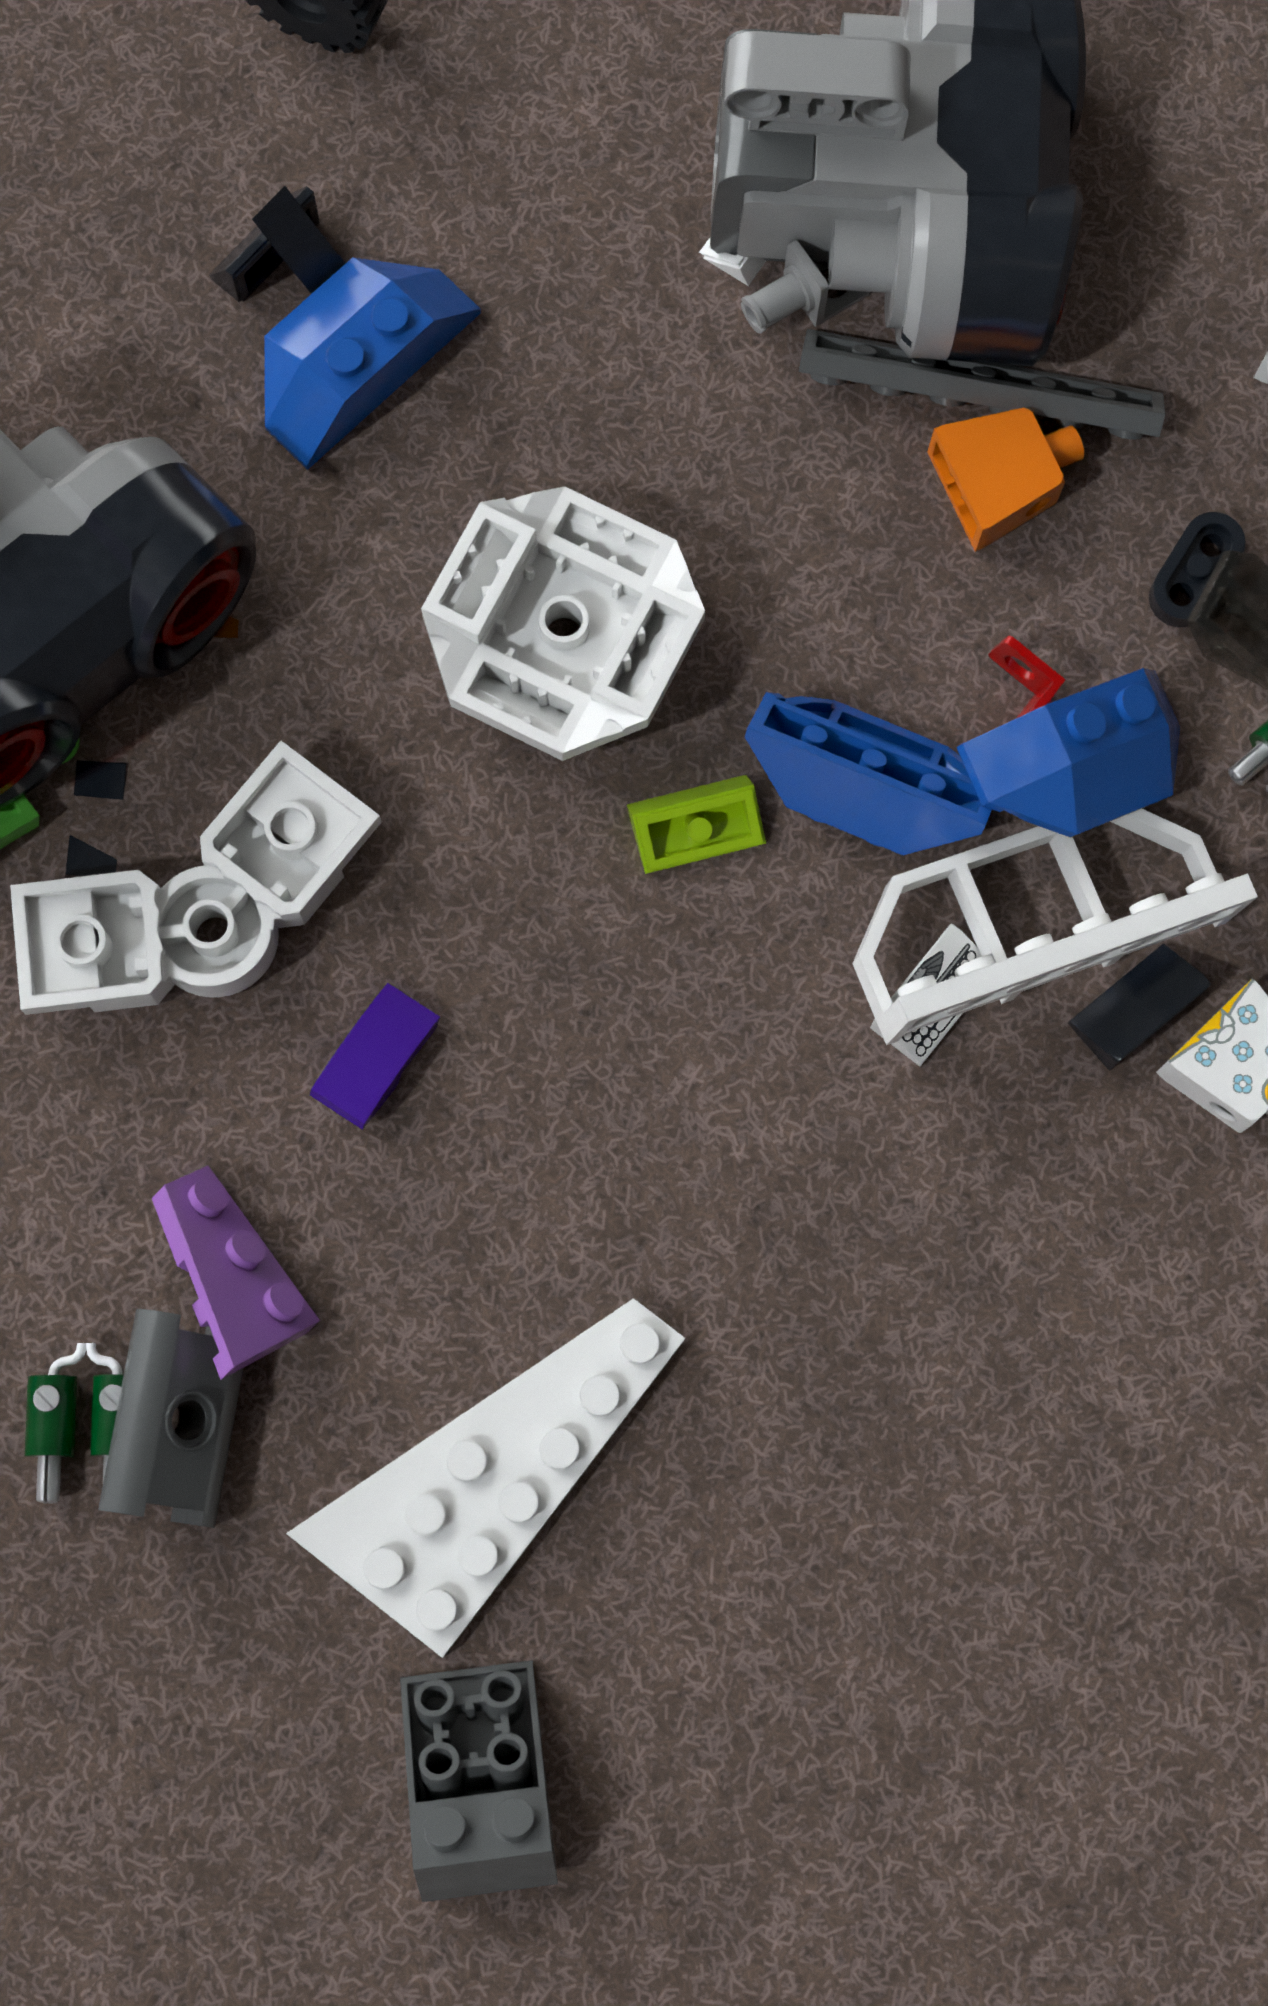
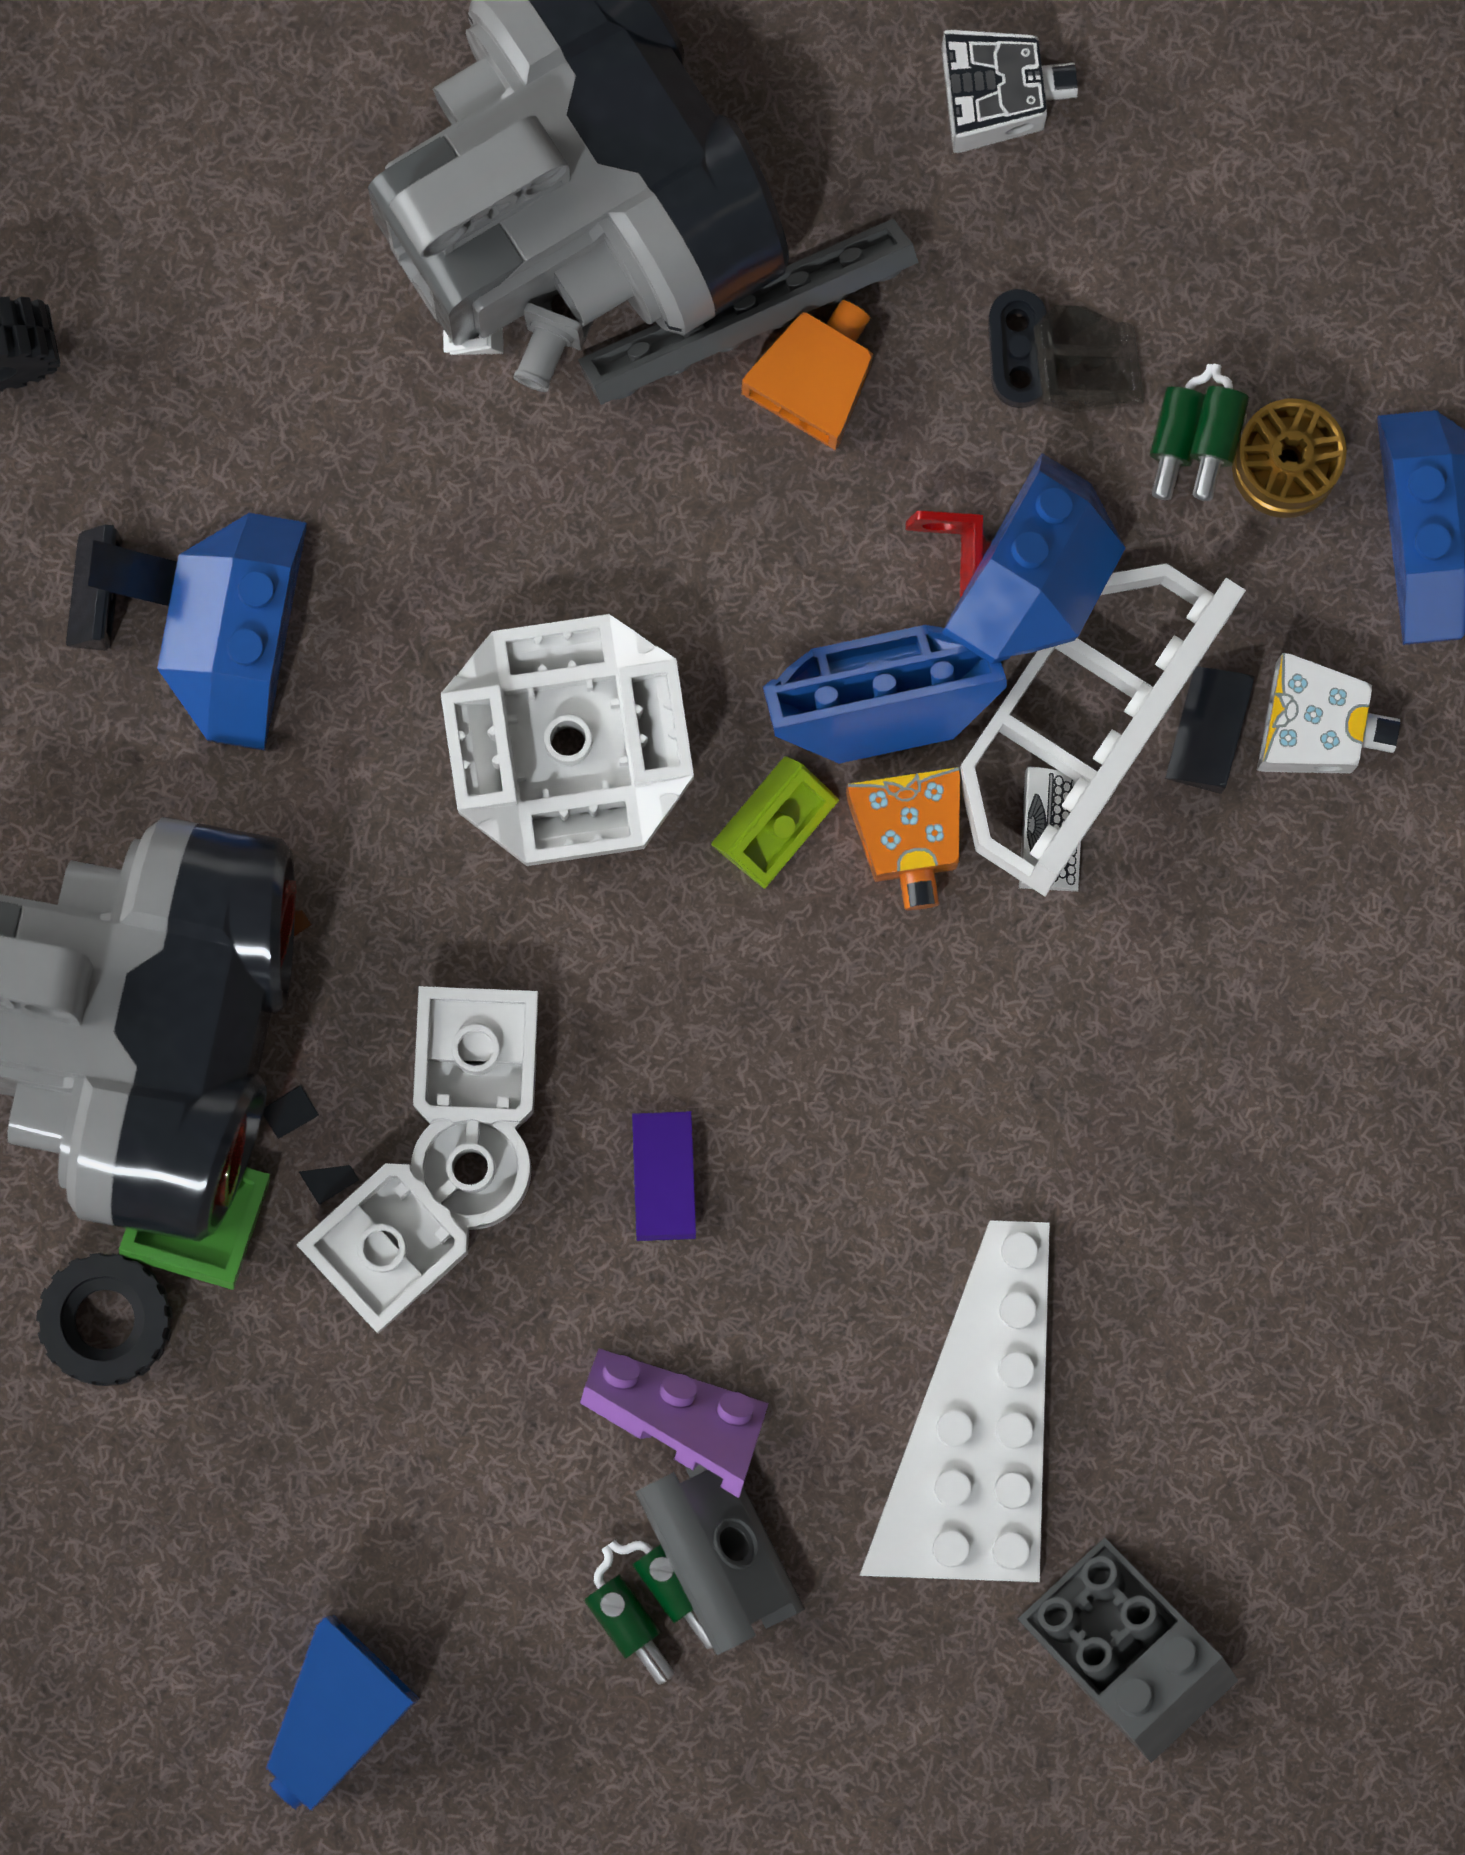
camera: 35 degrees left, 5 degrees up
(808, 907) = (909, 830): none -> orange torso

